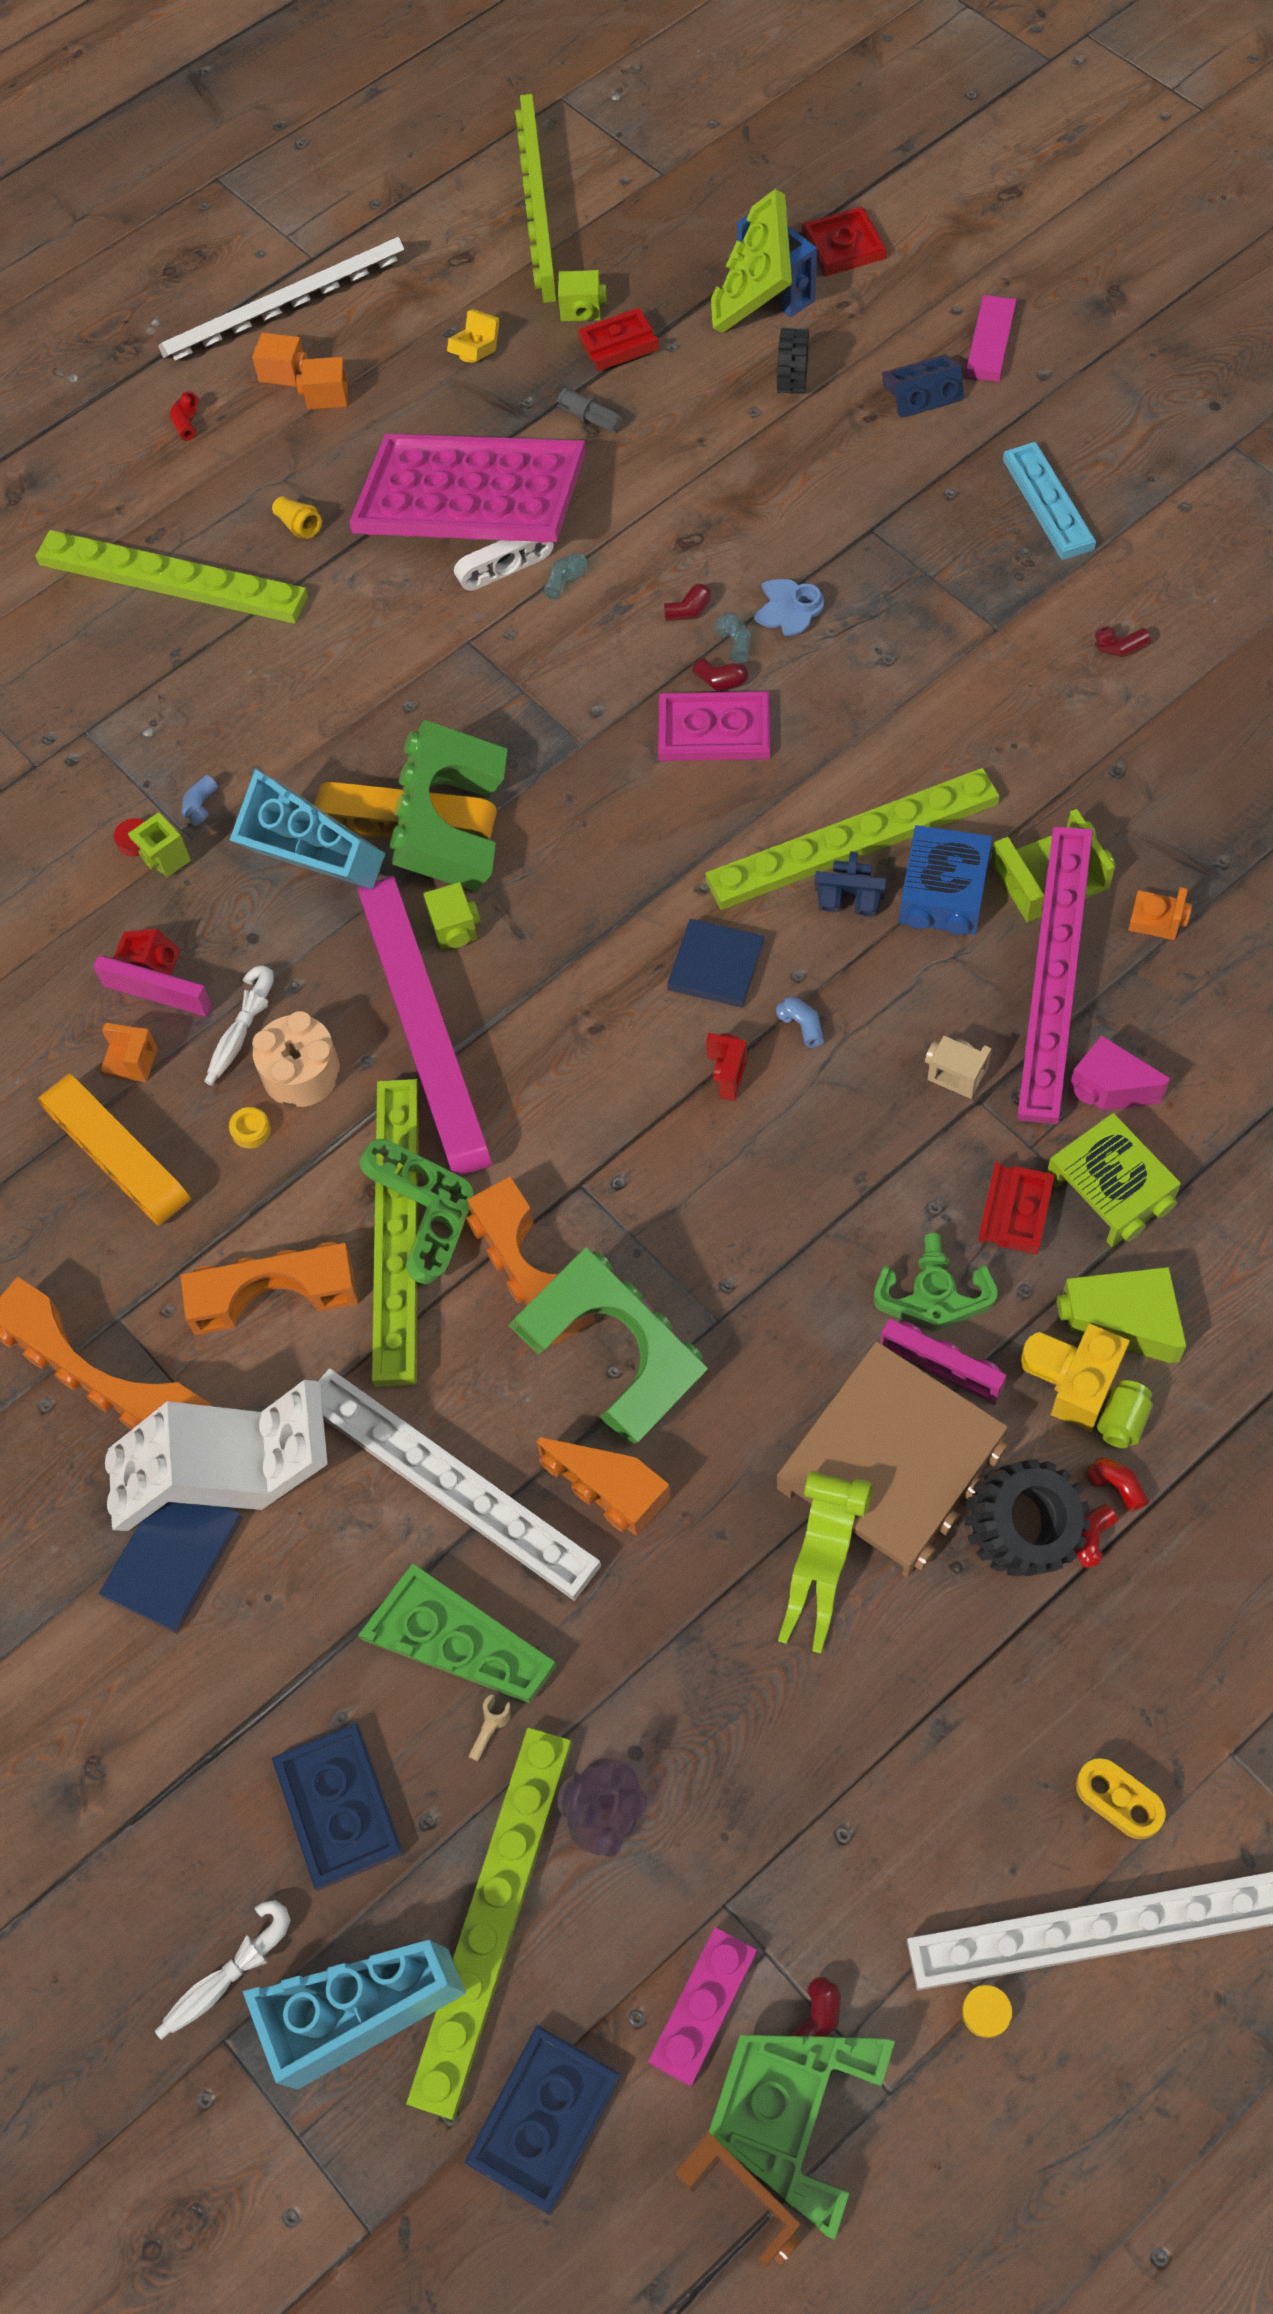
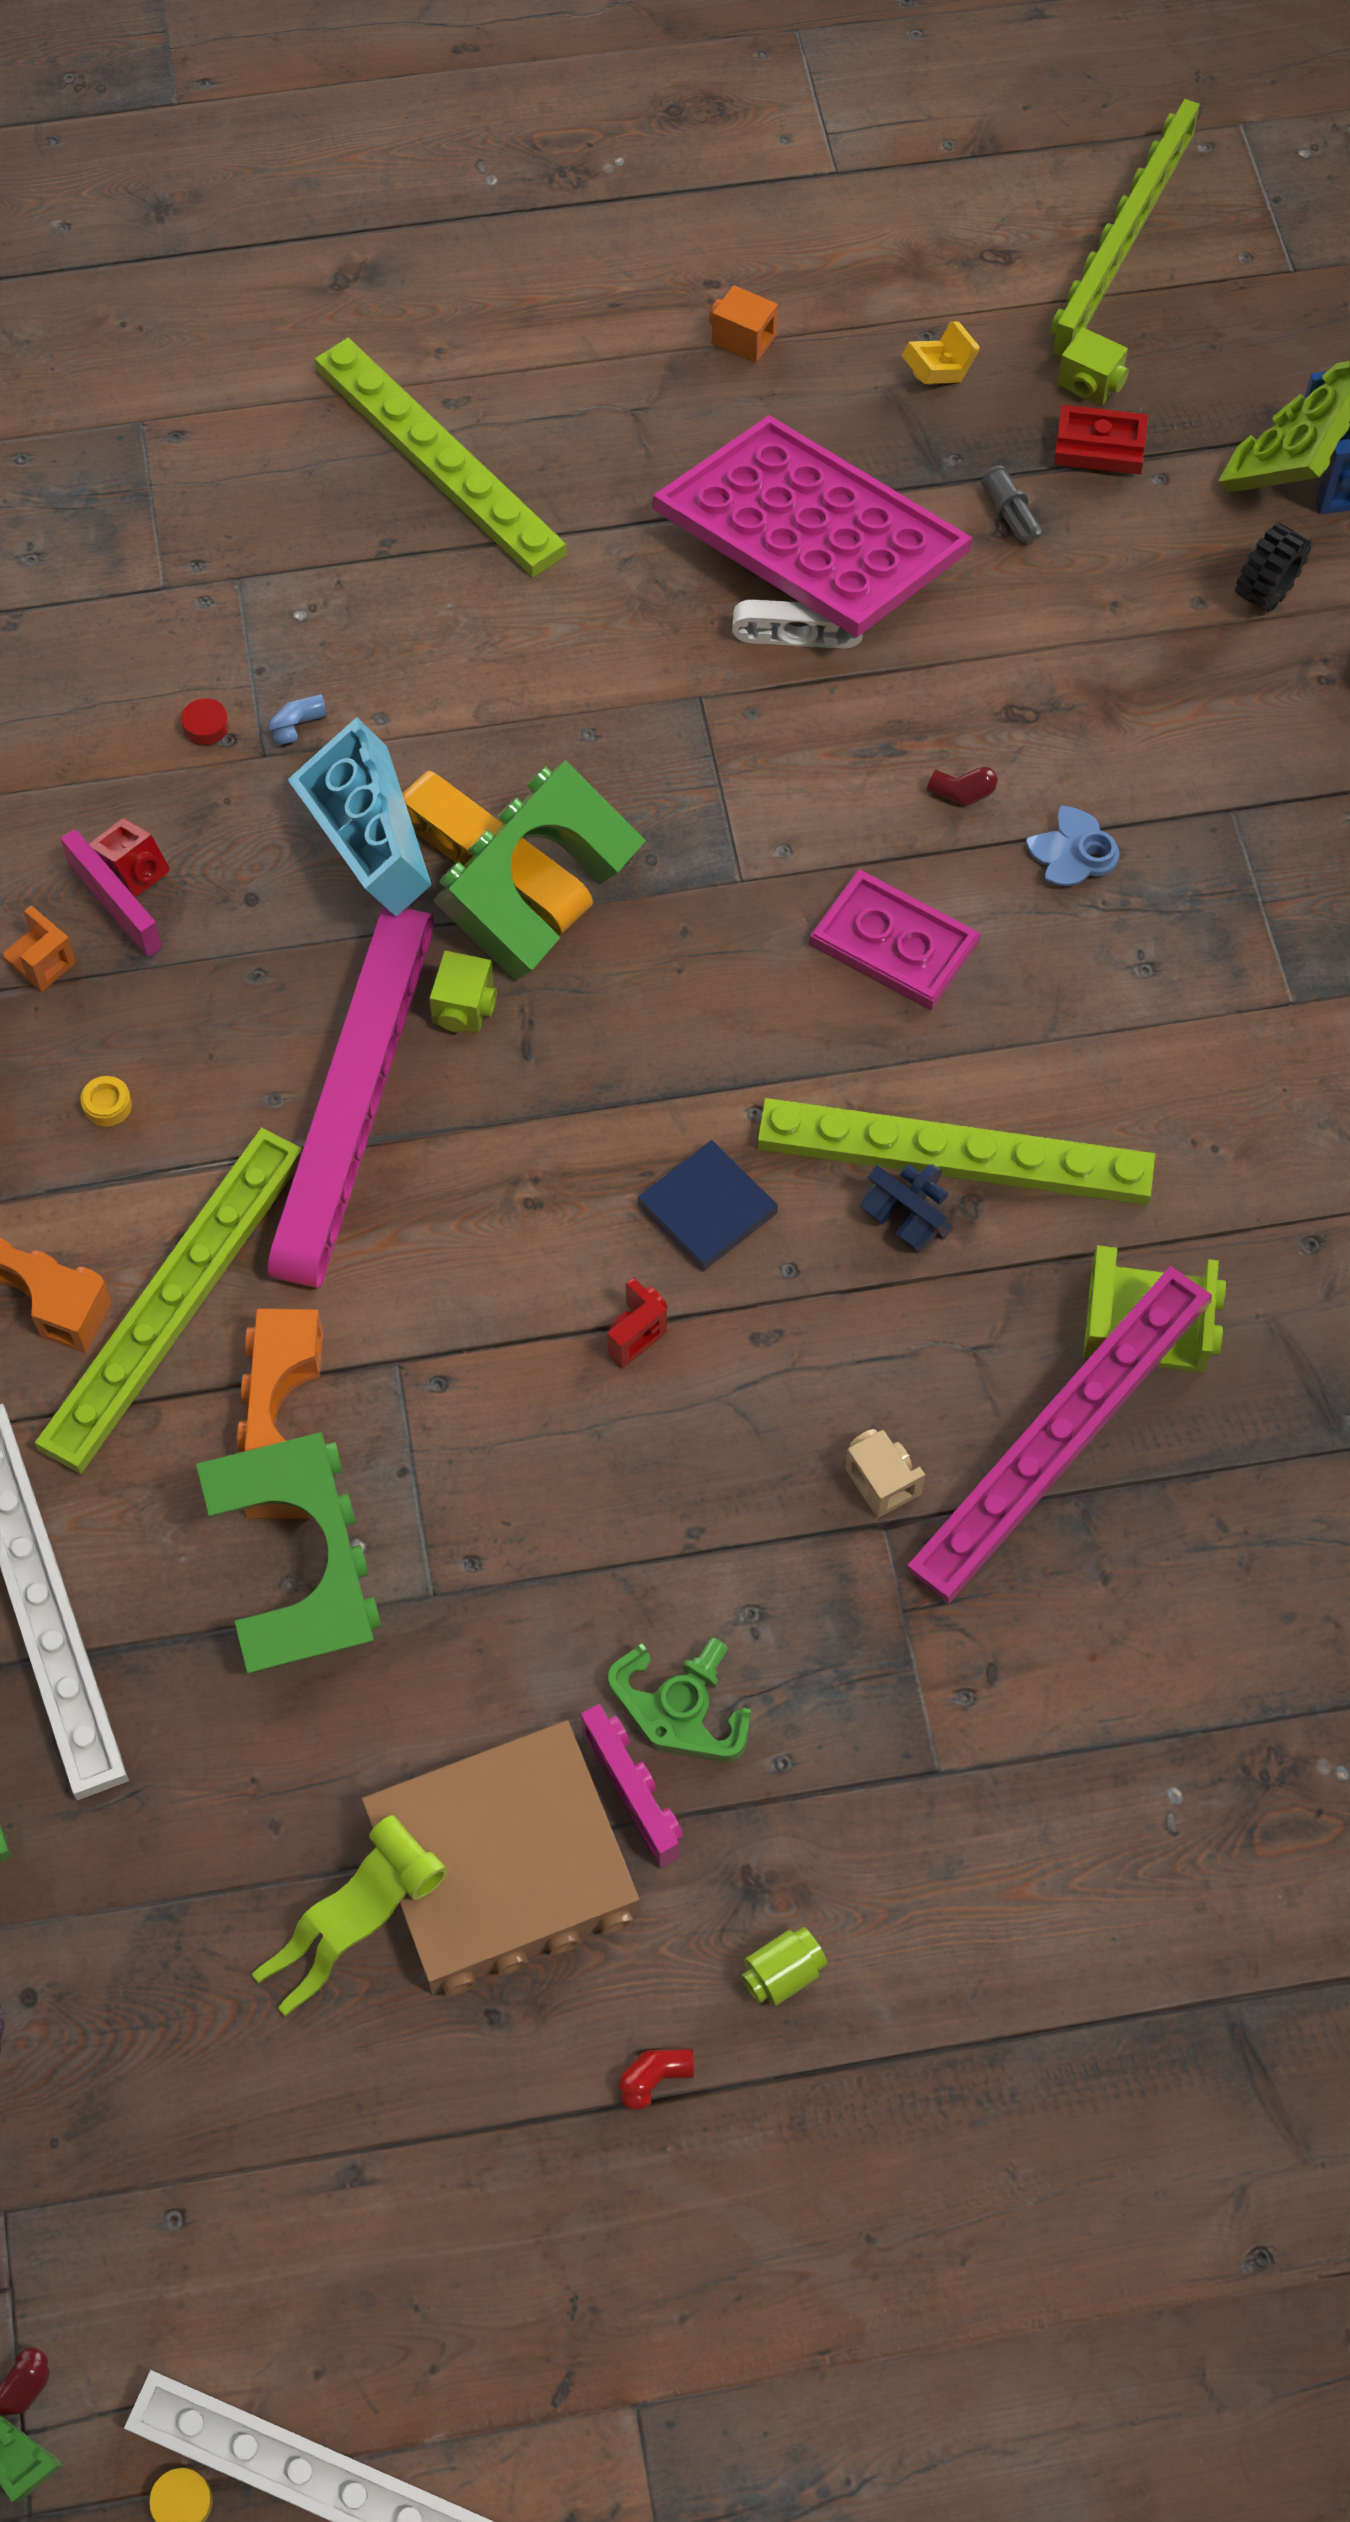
camera: 25 degrees right, 0 degrees up
(160, 845) = (216, 745): lime brick -> none
(183, 413) = (574, 280): red arm -> none
(233, 1038) = (153, 996): white piece -> none
(269, 305) = (747, 204): white plate -> none
(278, 359) = (713, 268): orange brick -> none
(296, 1059) = (195, 1056): light nougat brick -> none
(299, 518) = (612, 461): yellow cone -> none
(437, 1203) = (229, 1300): bright green beam -> none
(562, 572) = (852, 674): clear light blue arm -> none
(613, 1480) = (202, 1704): orange slope -> none
(721, 677) = (940, 888): dark red arm -> none
(732, 625) = (996, 850): clear light blue arm -> none
(807, 1017) = (760, 1320): medium blue arm -> none
(945, 880) = (1017, 1255): blue panel -> none
(1016, 1208) = (832, 1668): red plate -> none
(1059, 1511) = (626, 2041): black tyre -> none
(1080, 1373) = (765, 1891): yellow brick -> none
(1116, 1078) = (1044, 1590): dark pink slope -> none
(1116, 1178) = (961, 1702): lime panel -> none
(1120, 1476) = (732, 2032): red arm -> none
(1122, 1795) = (476, 2374): yellow plate -> none
(1130, 1305) = (865, 1854): lime slope -> none
(1160, 914) = (1235, 1434): orange bracket -> none

